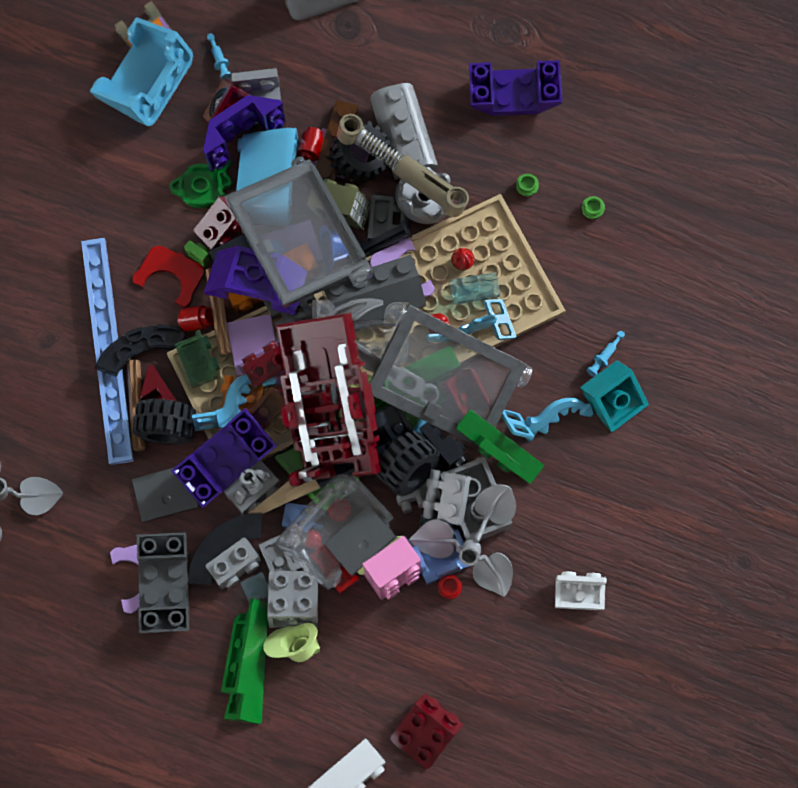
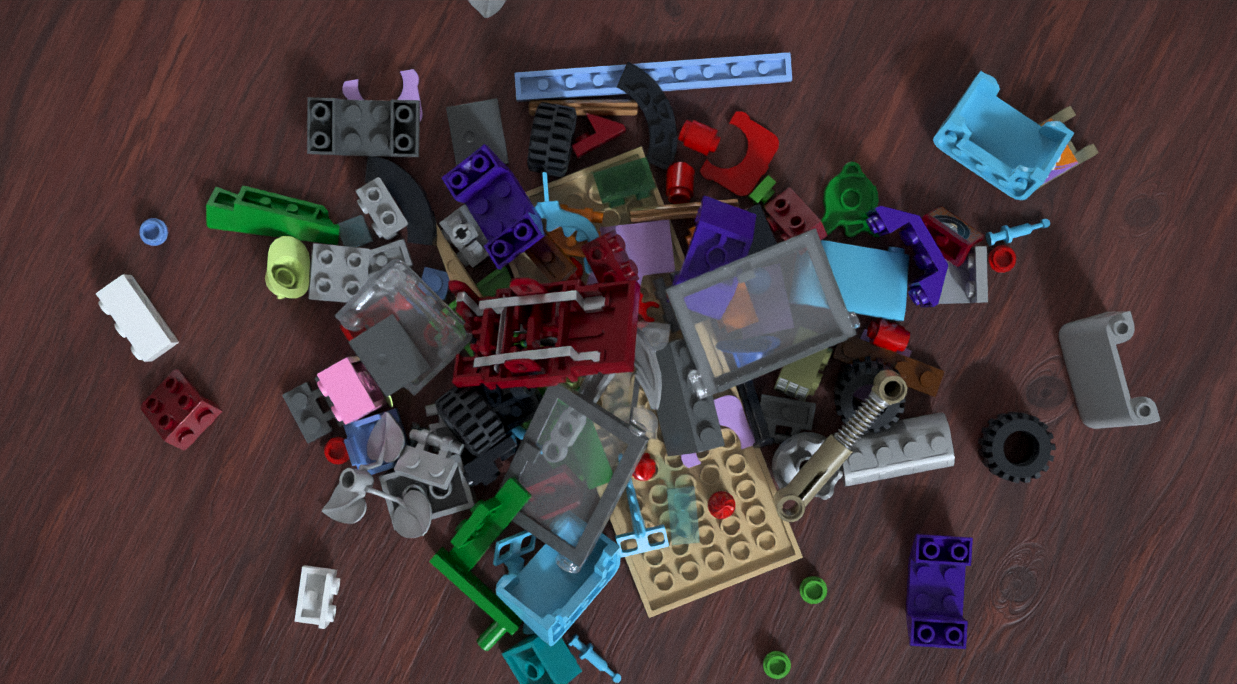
camera: 90 degrees right, 15 degrees up
(156, 307) = (699, 137): none -> red brick
(241, 64) = (1001, 259): none -> red plate
(268, 770) = (153, 232): none -> medium blue plate
(392, 23) = (1038, 450): none -> black tyre
(419, 616) = (308, 412): none -> dark grey plate
(553, 386) = (552, 598): none -> medium azure windscreen
(580, 429) = (504, 618): none -> green piece

